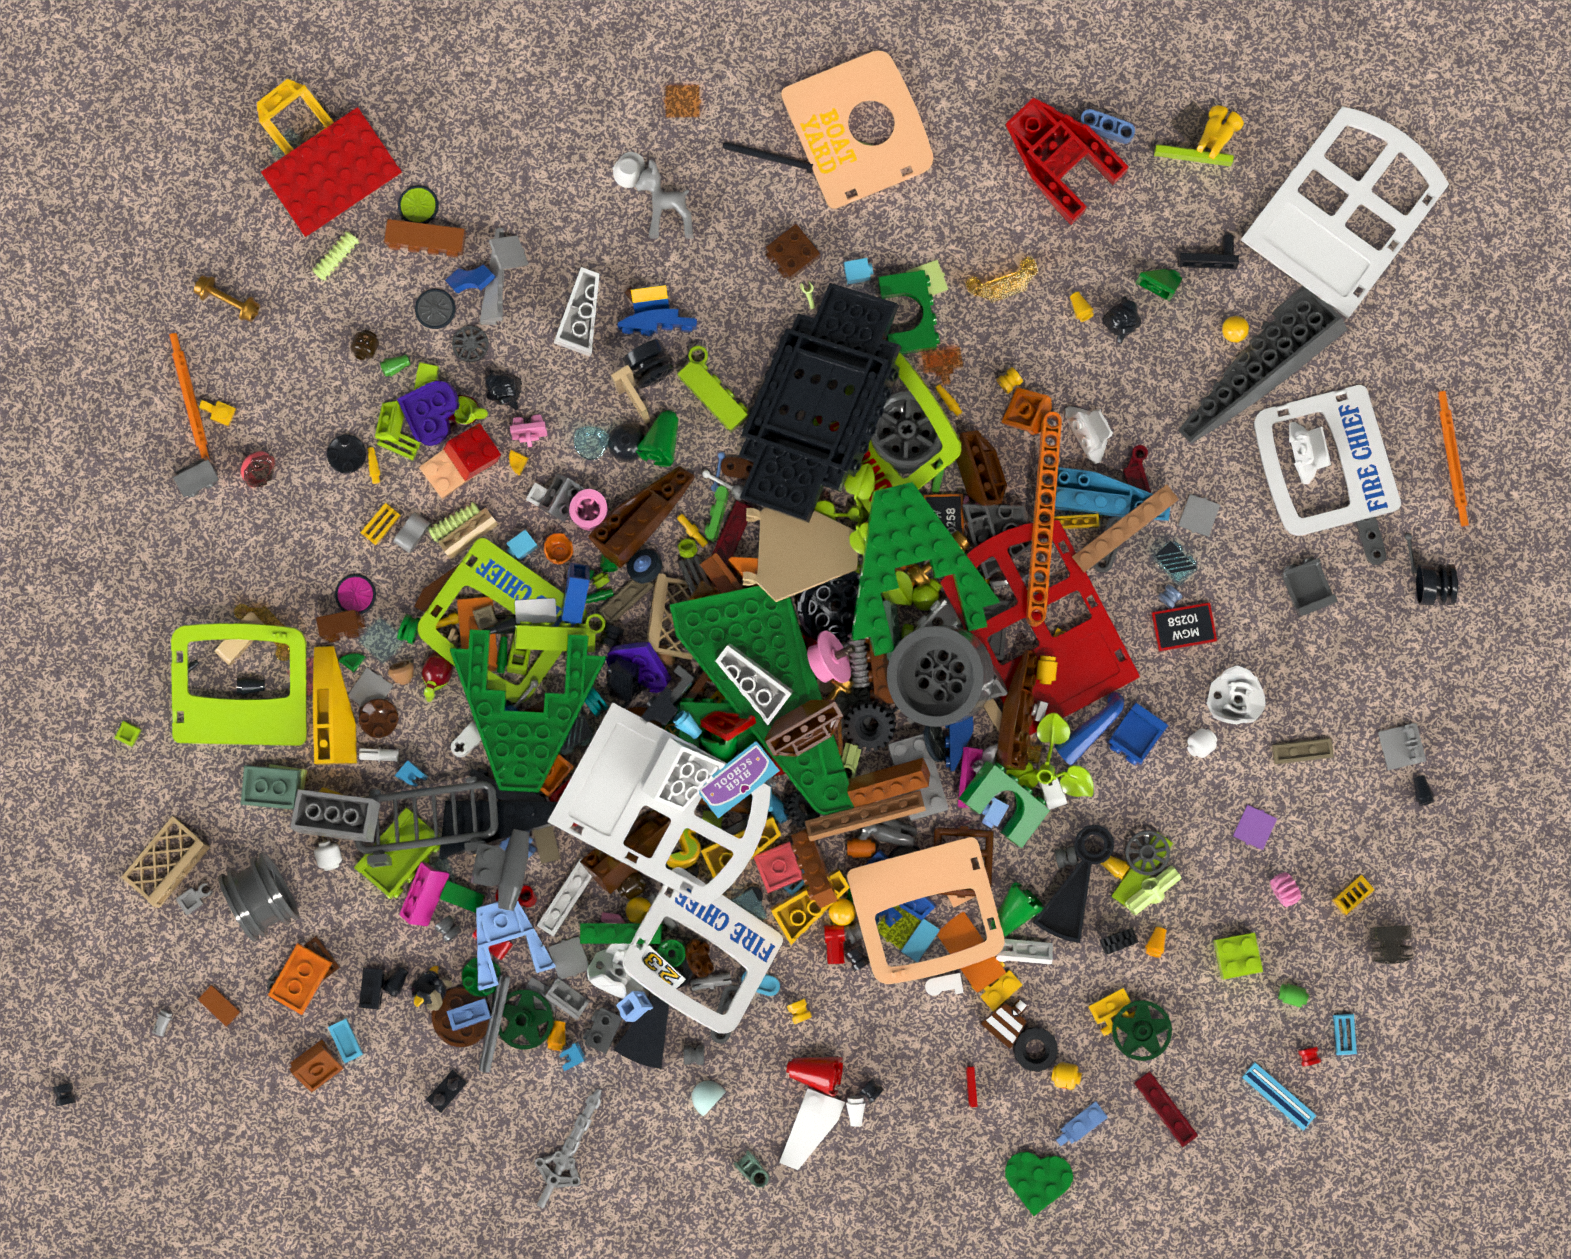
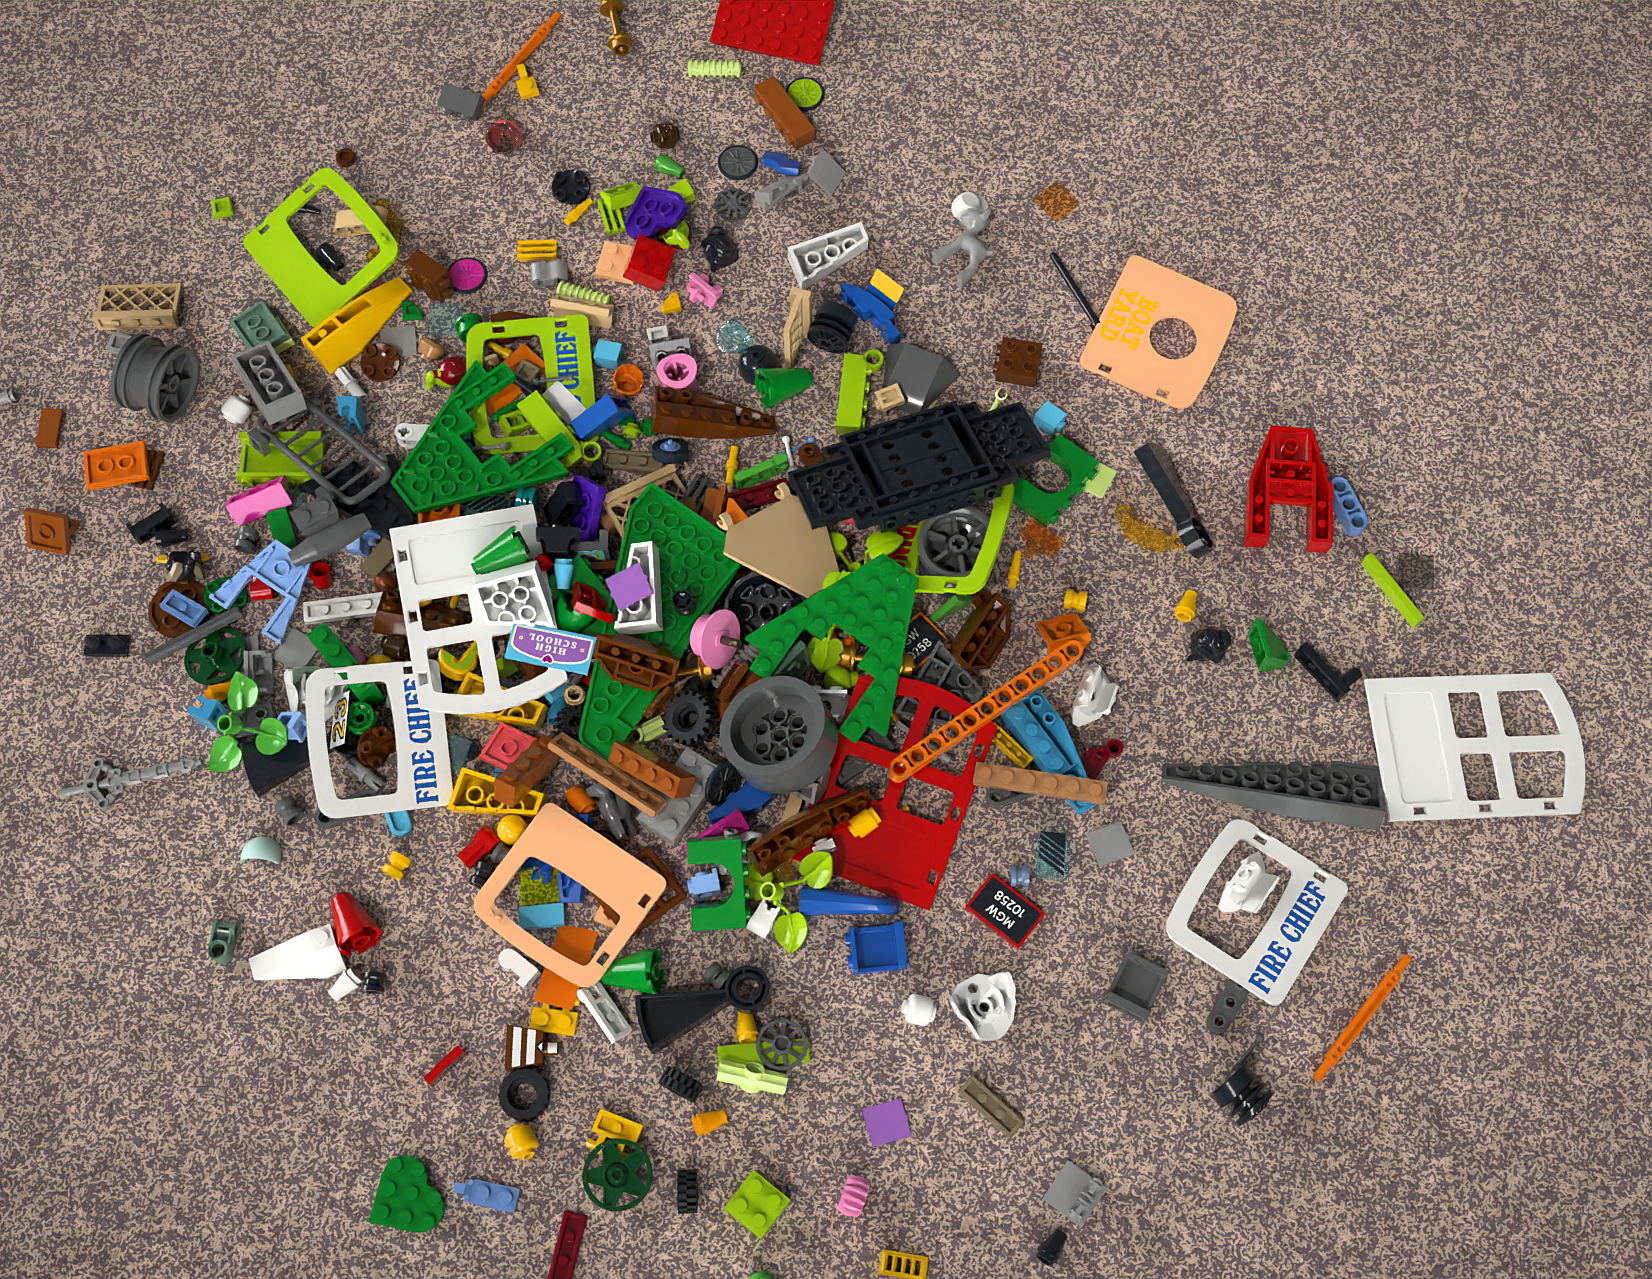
camera: 45 degrees right, 15 degrees down
(164, 604) = (345, 157): none -> reddish brown tile
(345, 1040) = (91, 538): medium azure tile -> none
(521, 590) = (536, 381): none -> dark grey hinge
(570, 854) = (384, 581): none -> copper piece
(607, 1067) = (271, 737): none -> bright green plant
(641, 756) = (503, 552): none -> green cone
(667, 732) = (544, 562): none -> red hinge
(687, 548) = (713, 472): lime tile -> none
(737, 339) = (918, 374): none -> dark grey wedge
(741, 373) = (888, 398): none -> tan bracket
(747, 689) = (629, 586): none -> medium lavender piece
(786, 786) = (574, 692): none -> tan cone
(787, 660) = (680, 599): none -> black wheel
(869, 674) = (730, 681): none -> reddish brown tile
(975, 235) = (1165, 480): none -> black piece
(1192, 993) = (687, 1191): none -> black tyre
(1215, 133) = (1432, 590): yellow piece -> none
(1235, 329) = (1289, 739): yellow piece -> none

